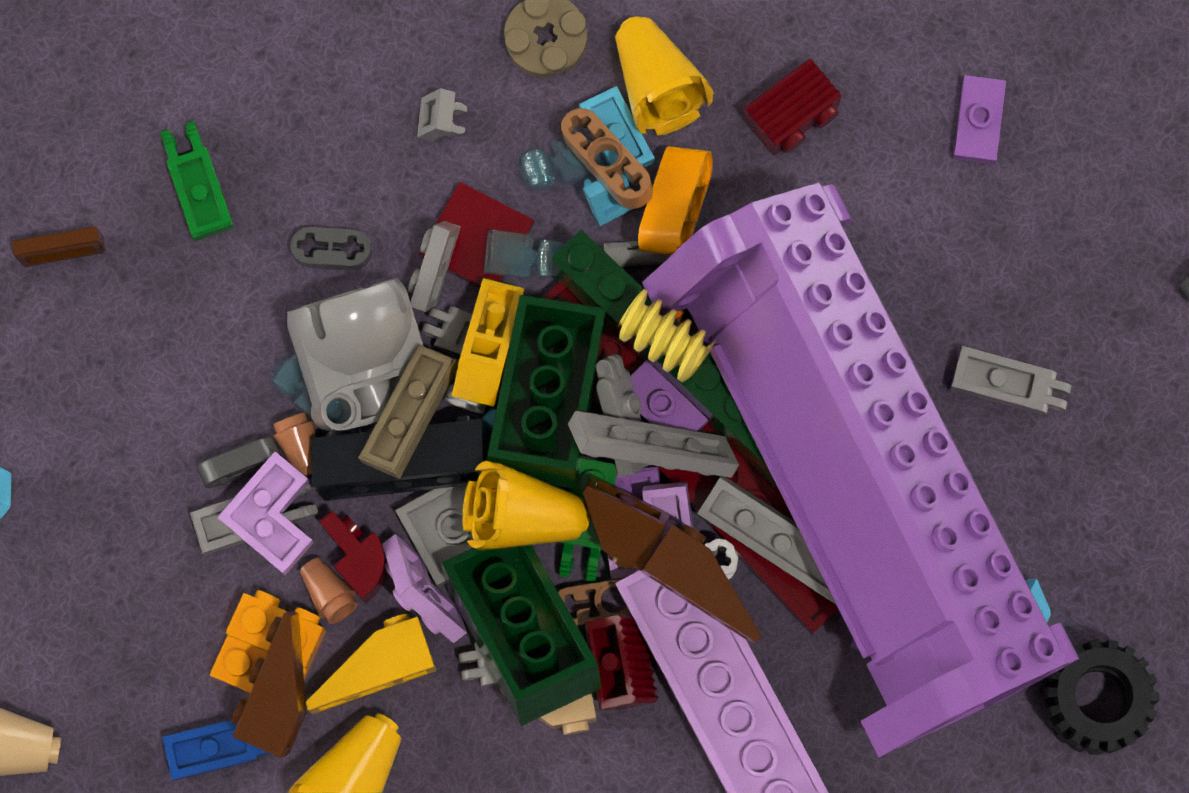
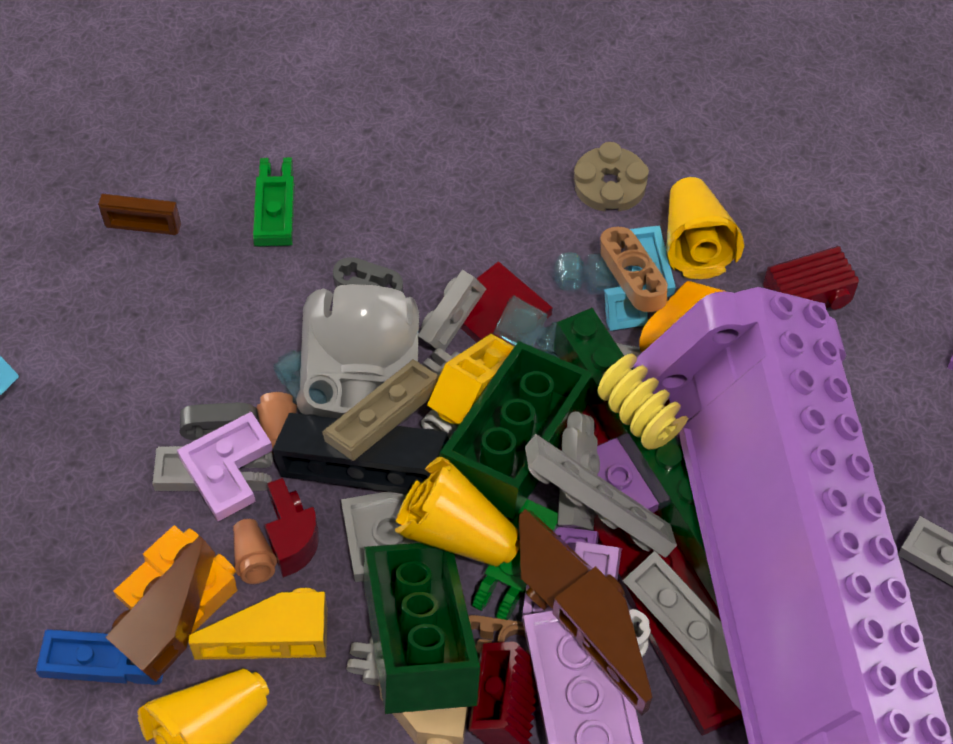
camera: 15 degrees right, 20 degrees down
(416, 592) = (331, 563): lavender plate -> none
(437, 115) = (497, 207): light grey tile -> none

